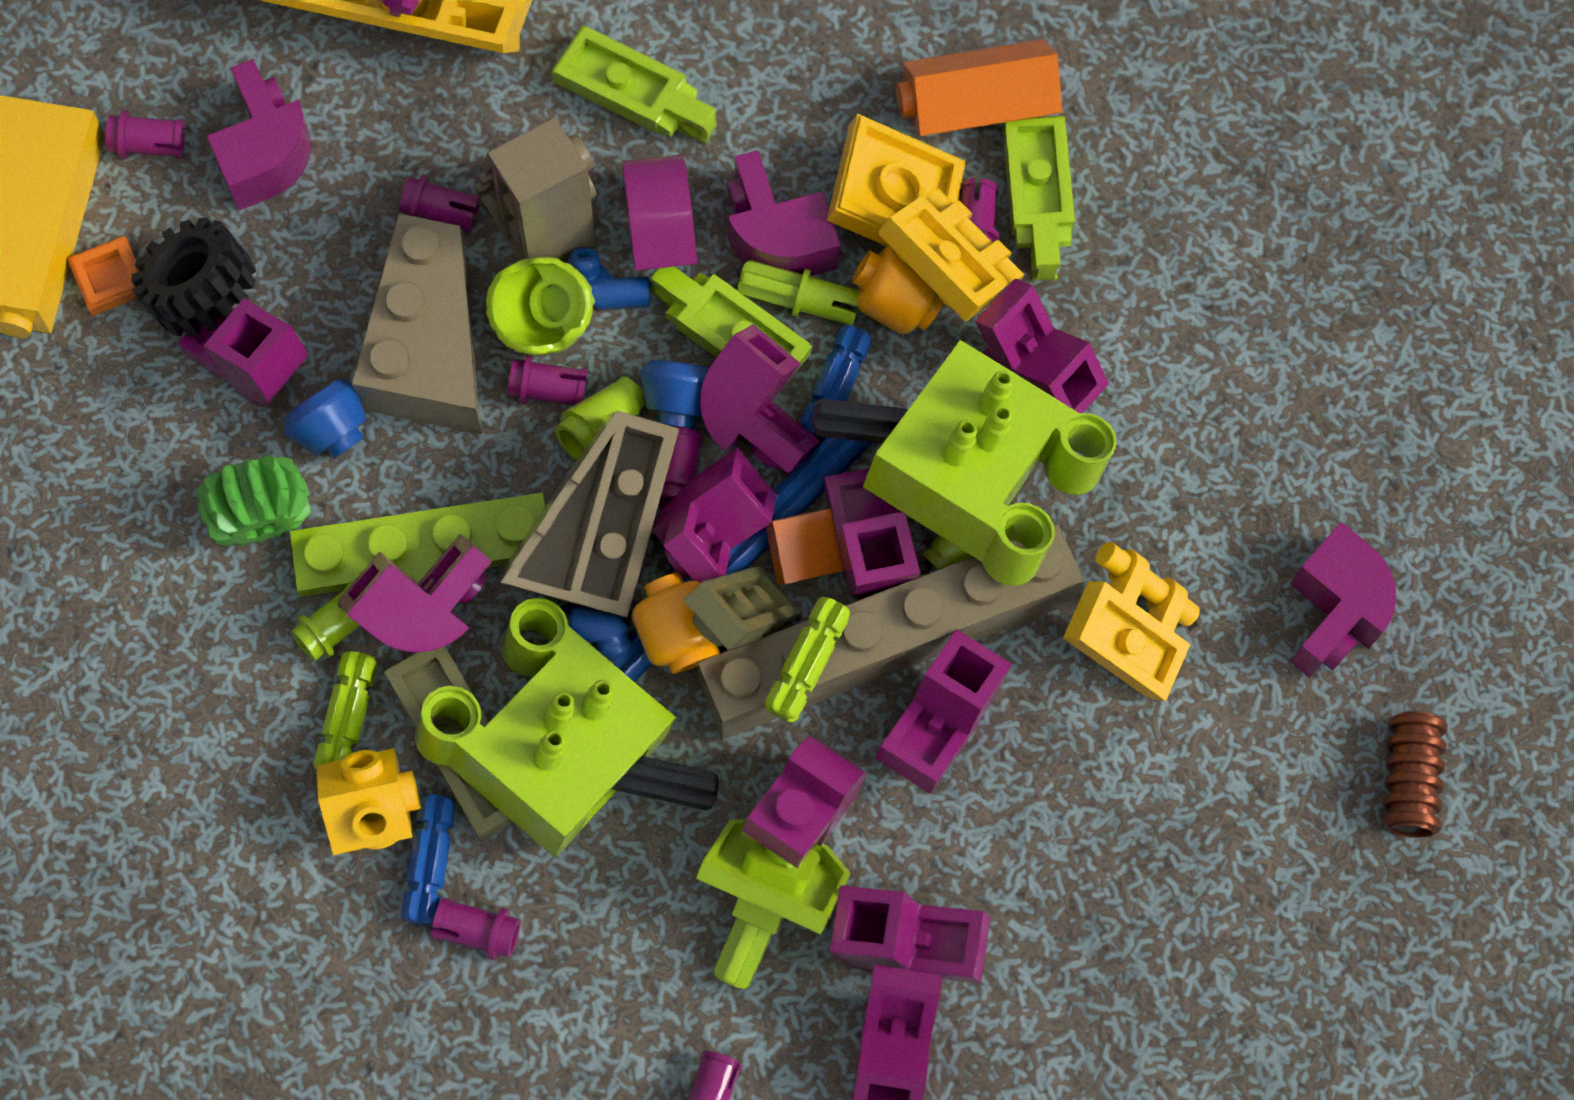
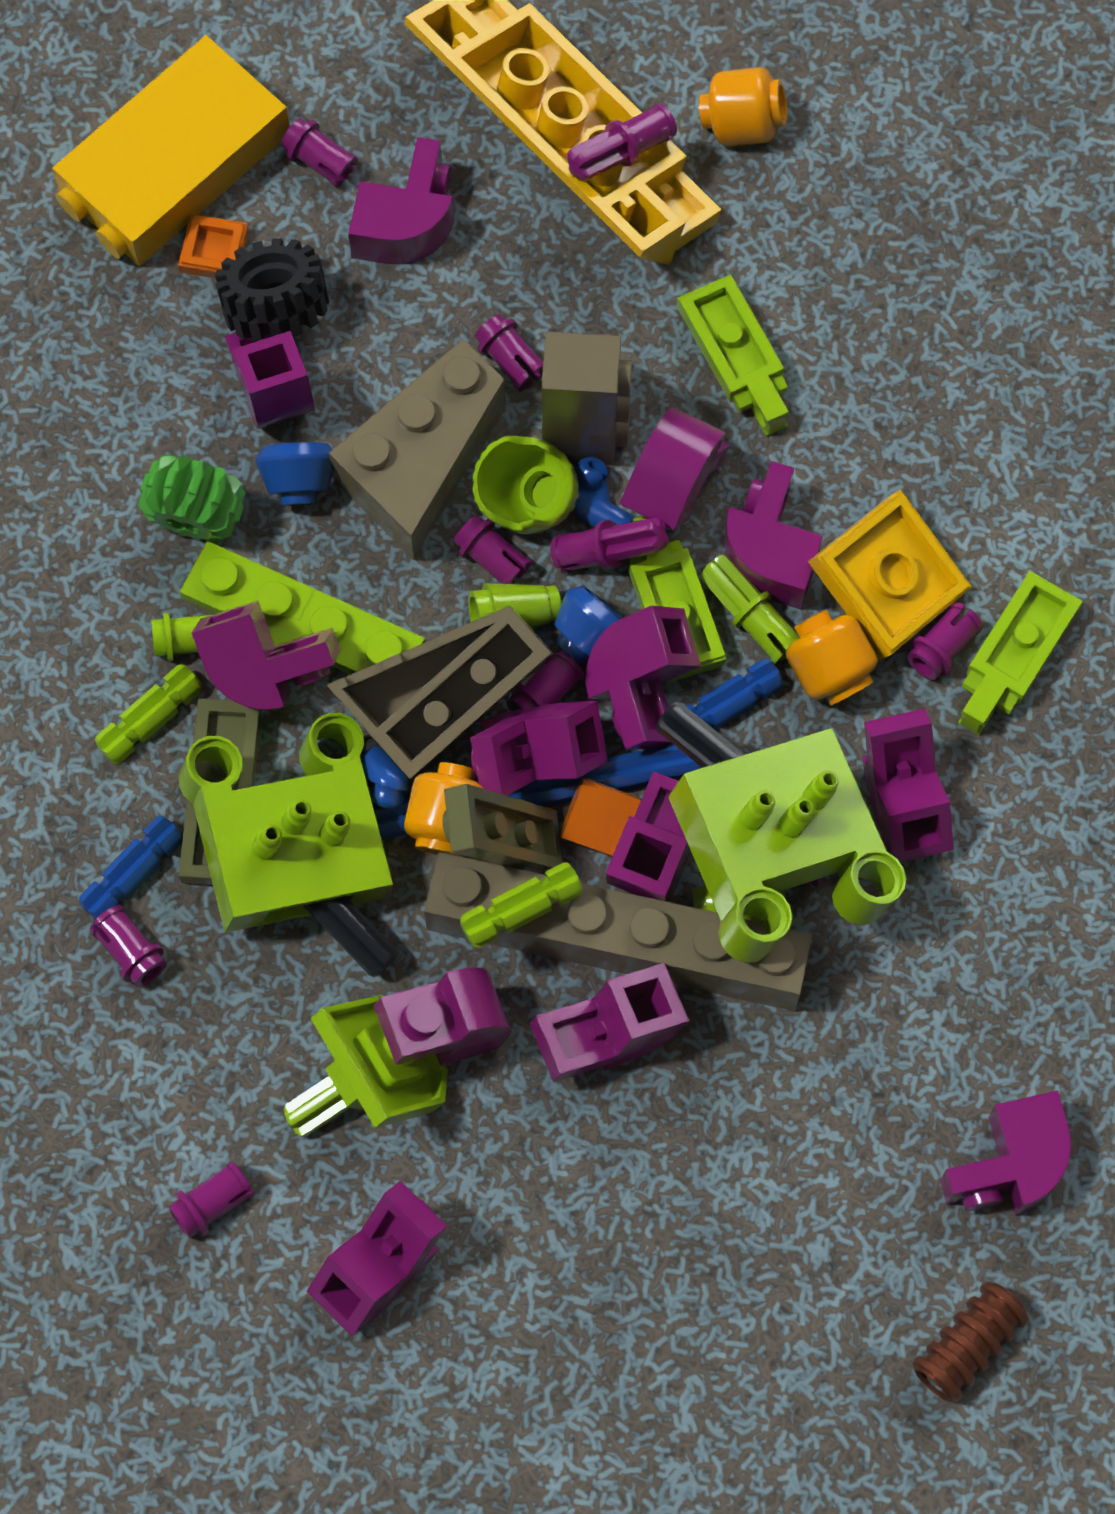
camera: 40 degrees right, 0 degrees up
(366, 800) = (112, 790): yellow brick -> none
(647, 311) = (608, 544): none -> magenta axle
(900, 933) = (450, 1180): magenta brick -> none
(950, 253) = (887, 653): yellow plate -> none
(980, 87) = (1024, 531): orange brick -> none
(1125, 637) = (805, 1066): yellow plate -> none

